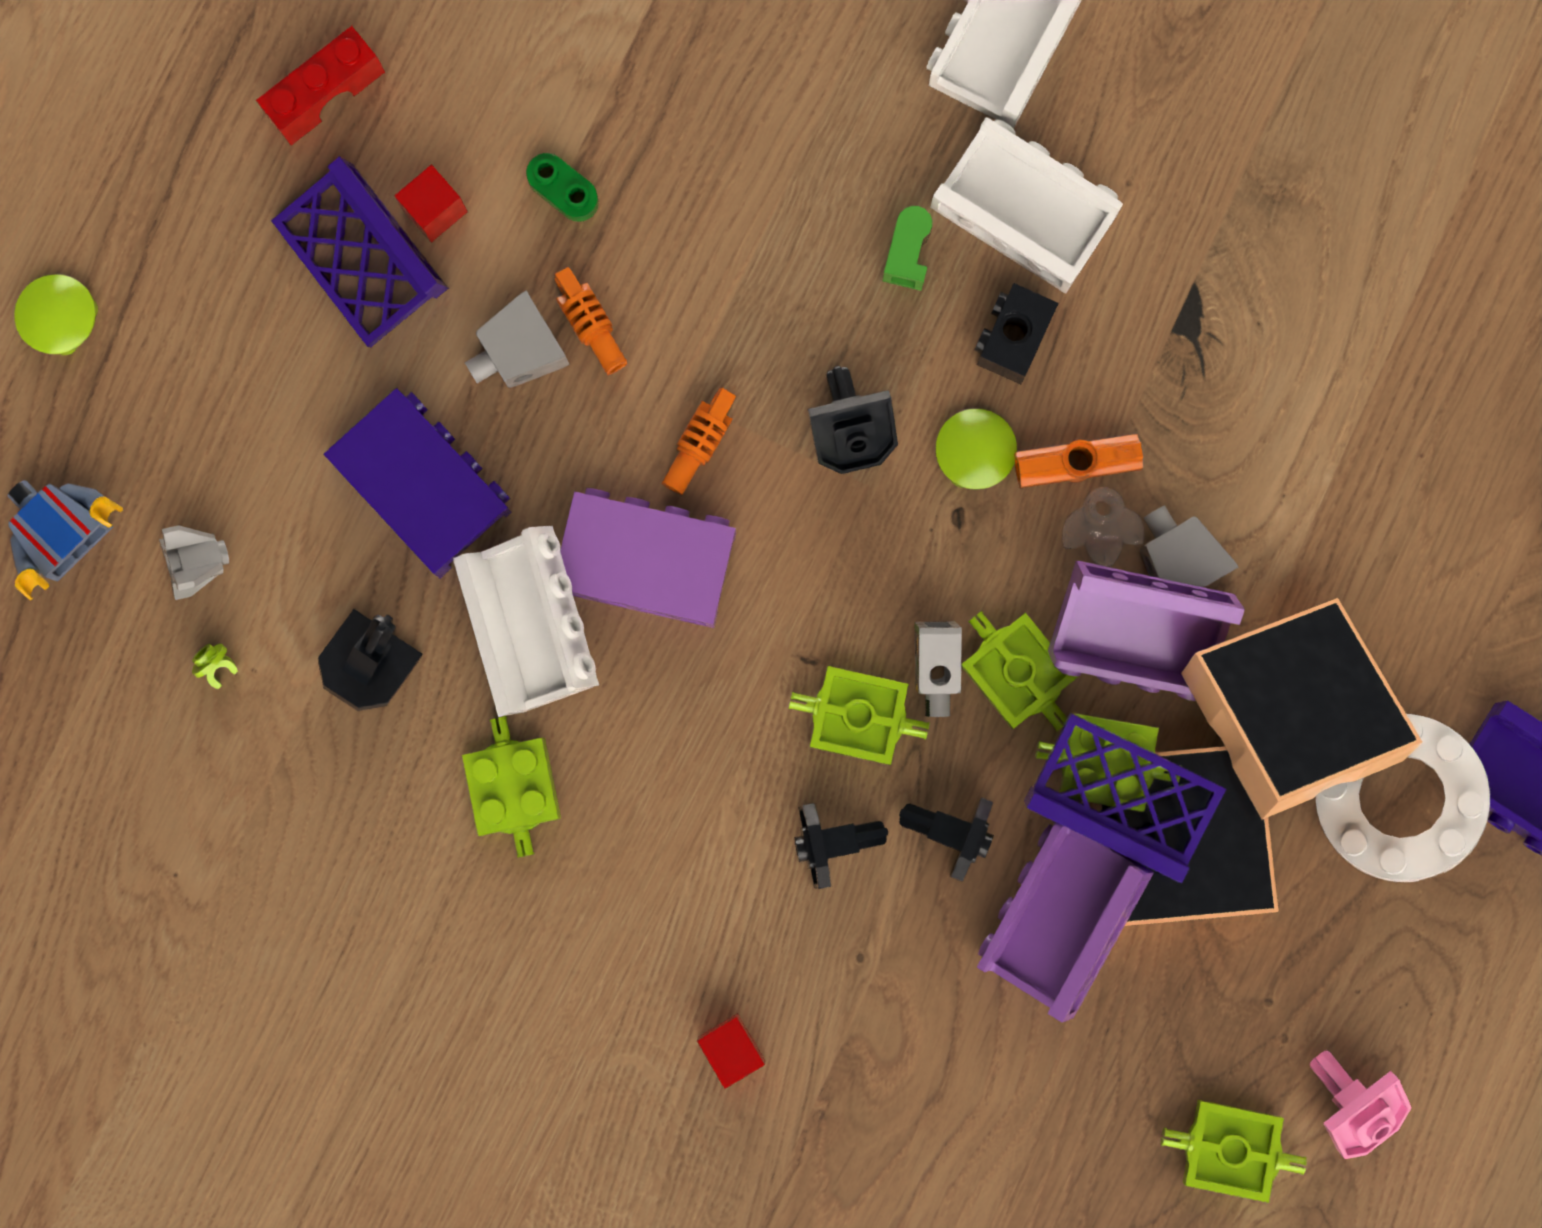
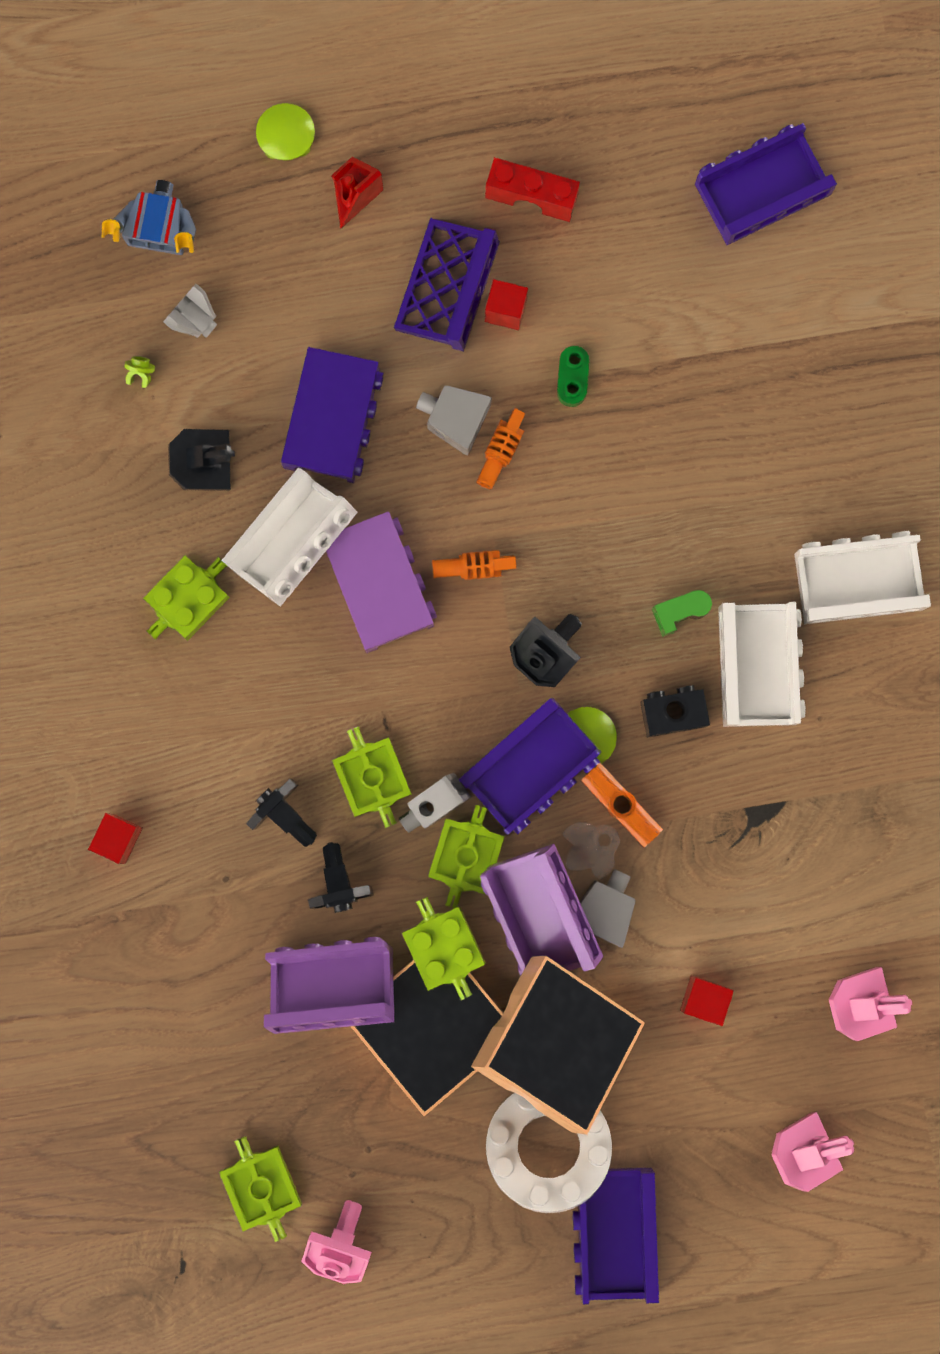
camera: 50 degrees right, 0 degrees up
(175, 279) = (355, 188): none -> red slope
(970, 530) = (531, 766): none -> dark purple panel
(1111, 832) = (399, 970): dark purple fence -> none
(1356, 516) = (706, 1000): none -> red piece
(1475, 350) = (863, 1005): none -> bright pink piece

